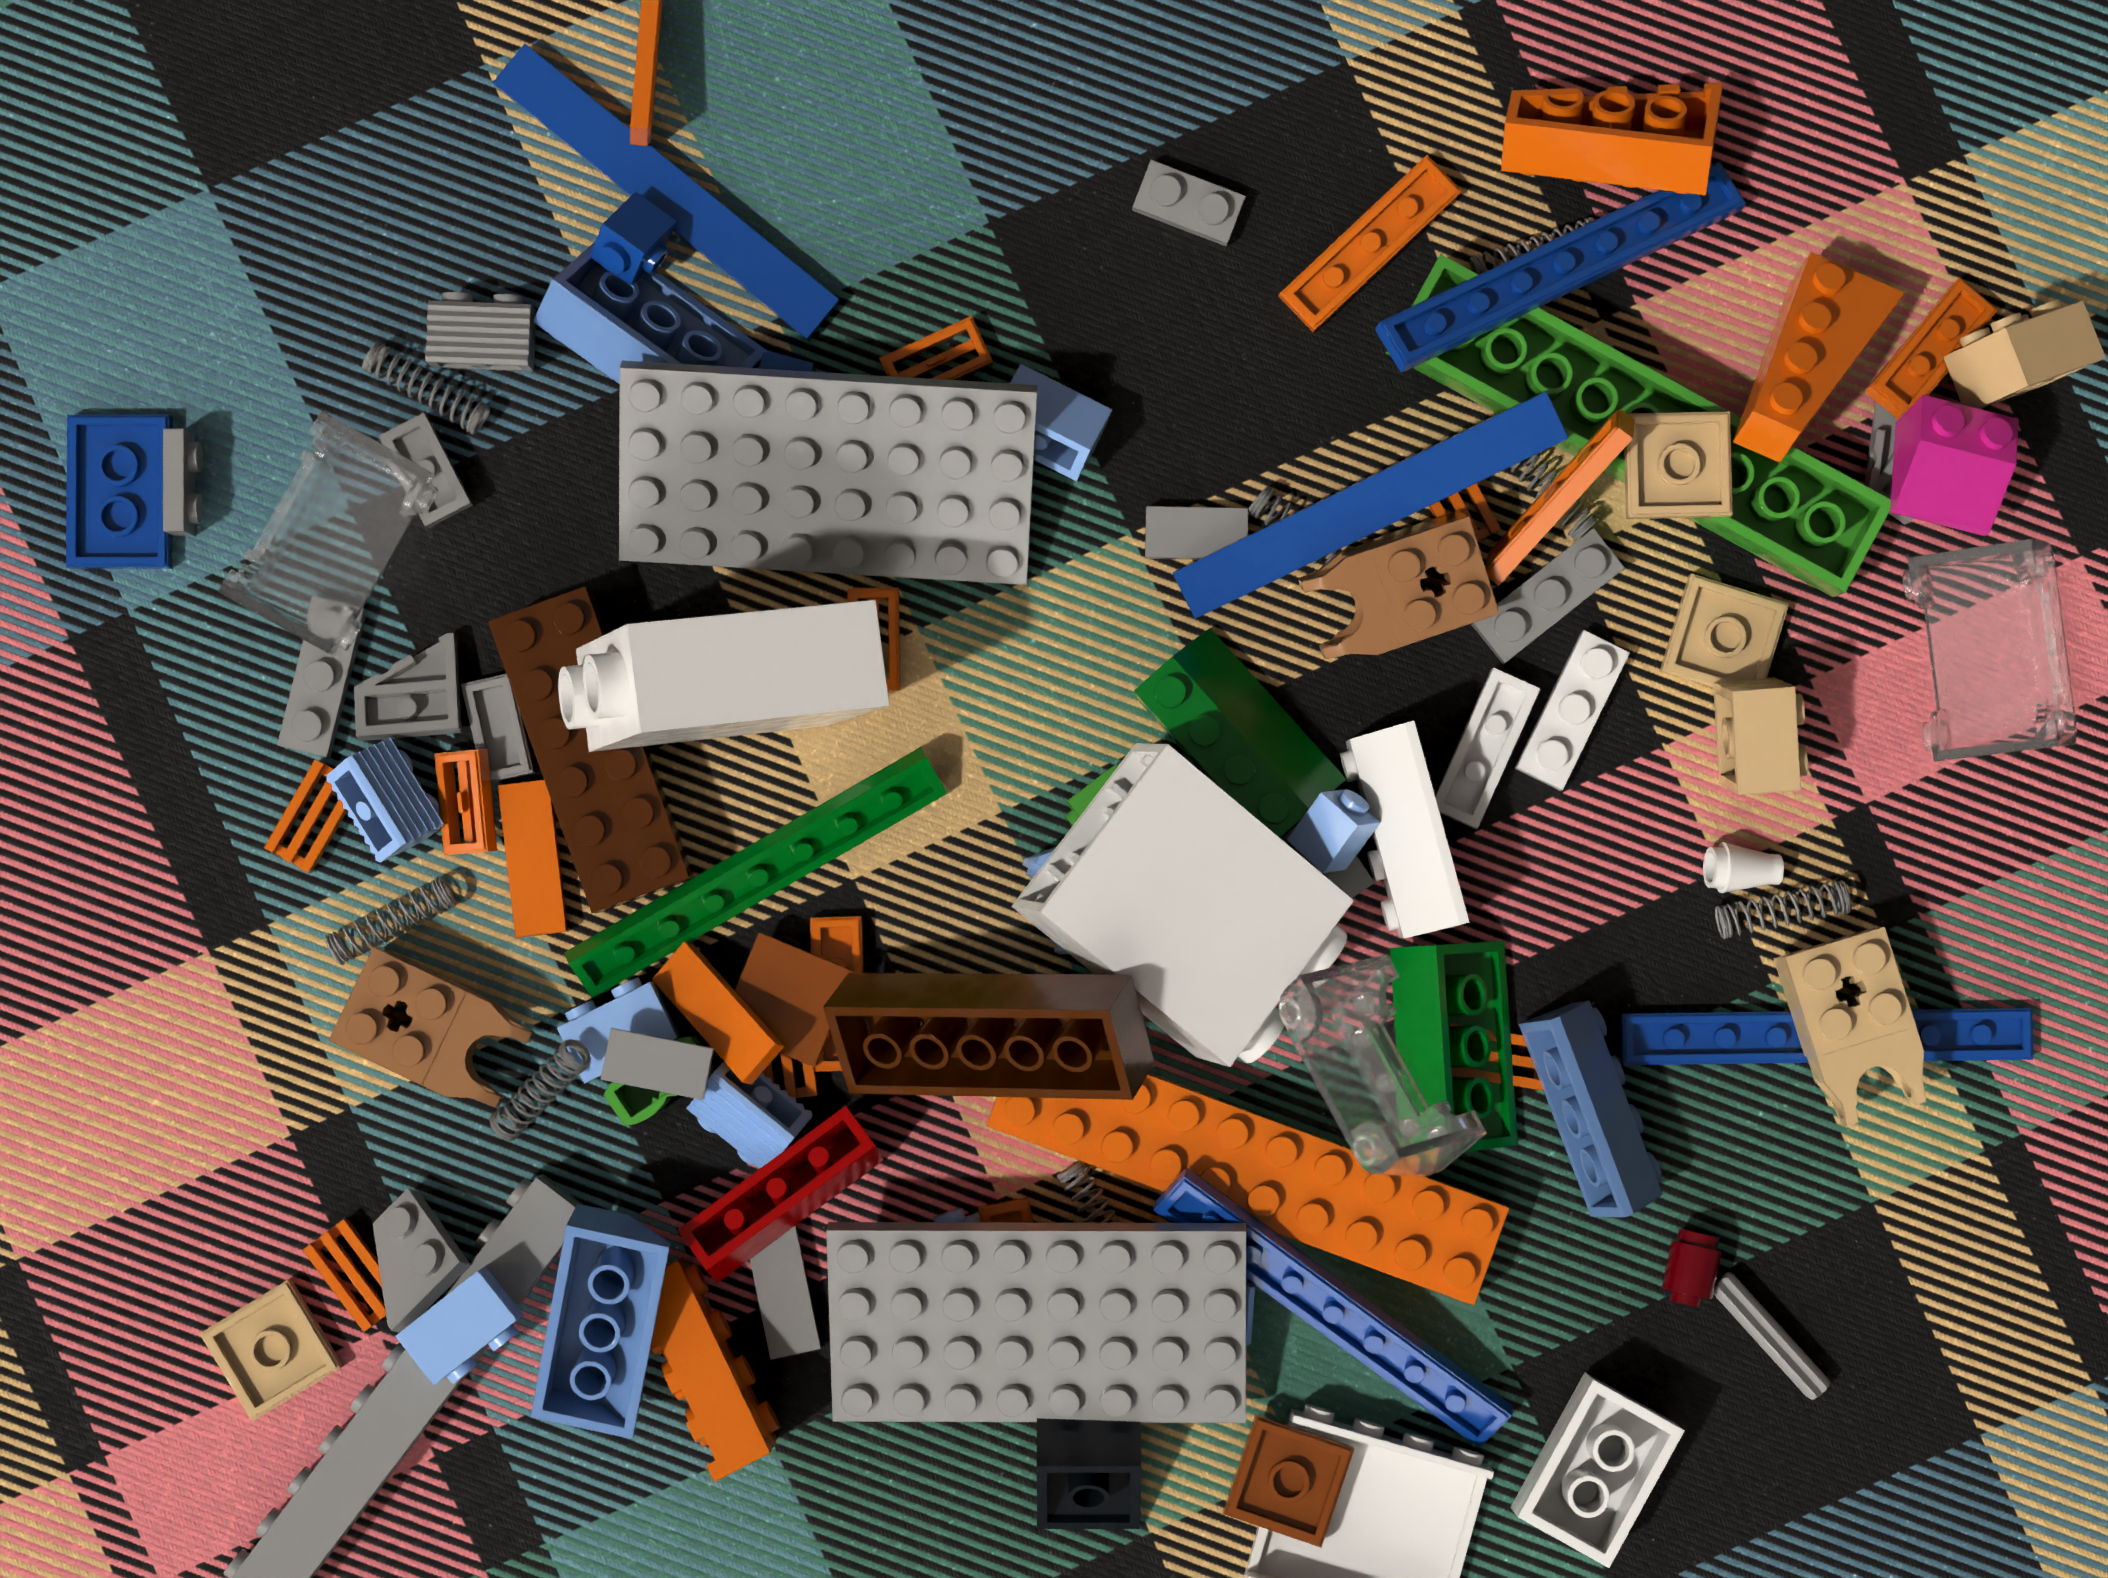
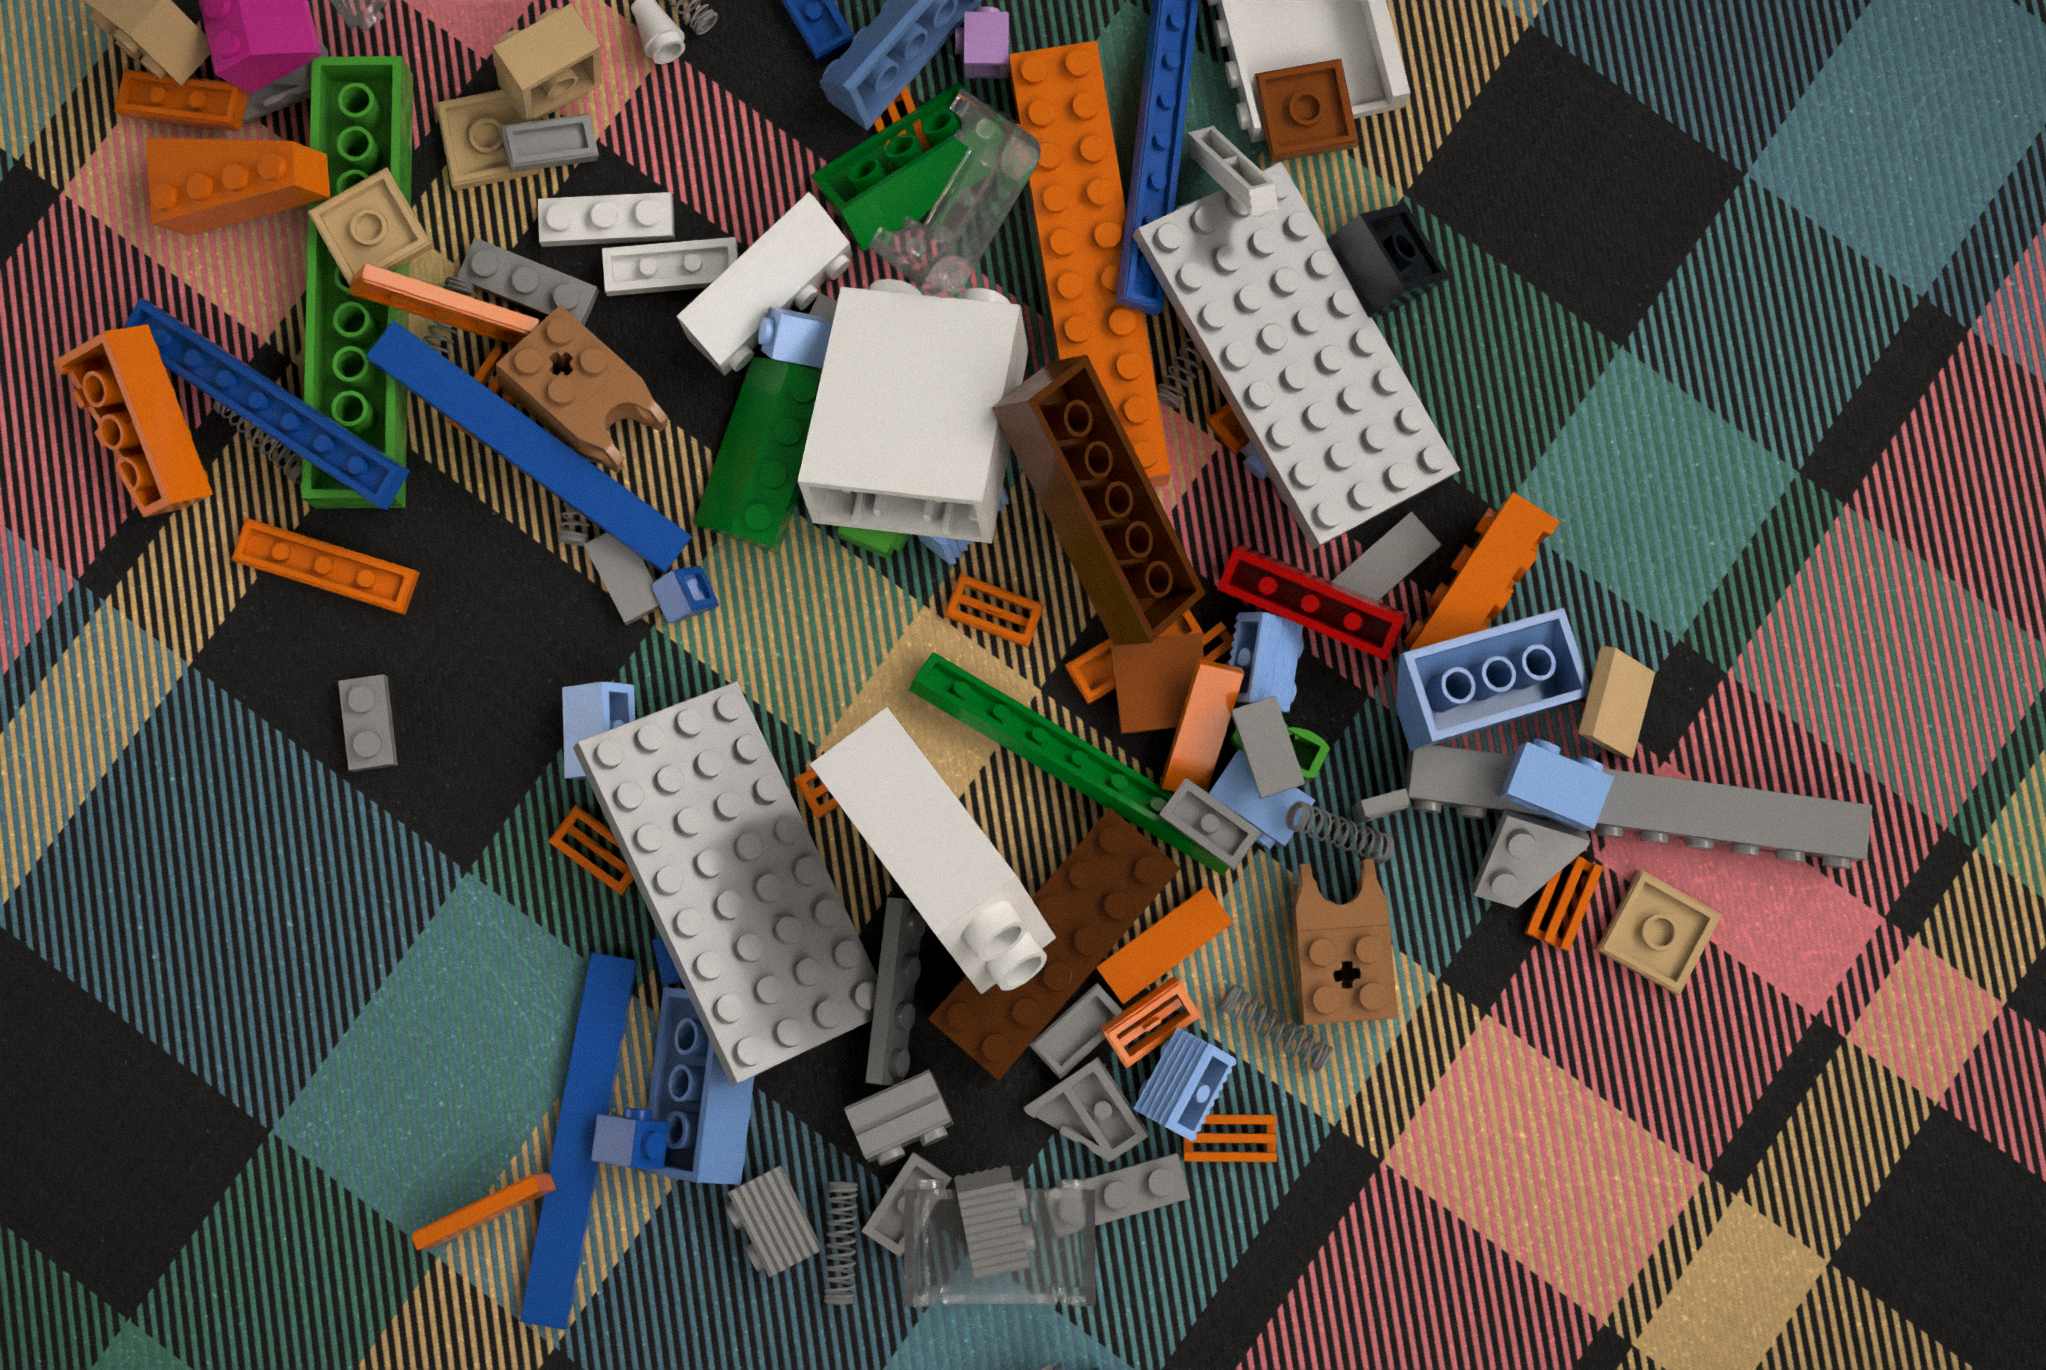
camera: 120 degrees left, 5 degrees down
(357, 540) = (993, 1221): none -> light grey brick
(510, 508) = (900, 1117): none -> light grey brick
(512, 1438) = (1616, 702): none -> tan tile
(542, 1143) = (1380, 806): none -> light grey tile
(617, 965) = (1209, 824): none -> light grey plate
(624, 564) = (895, 993): none -> dark grey plate
(922, 906) = (986, 626): none -> orange tile
(1142, 580) = (684, 593): none -> blue slope
(1255, 1363) = (1233, 171): none -> white piece
(1542, 1193) = (984, 43): none -> lavender brick
(1681, 695) = (549, 143): none -> light grey tile

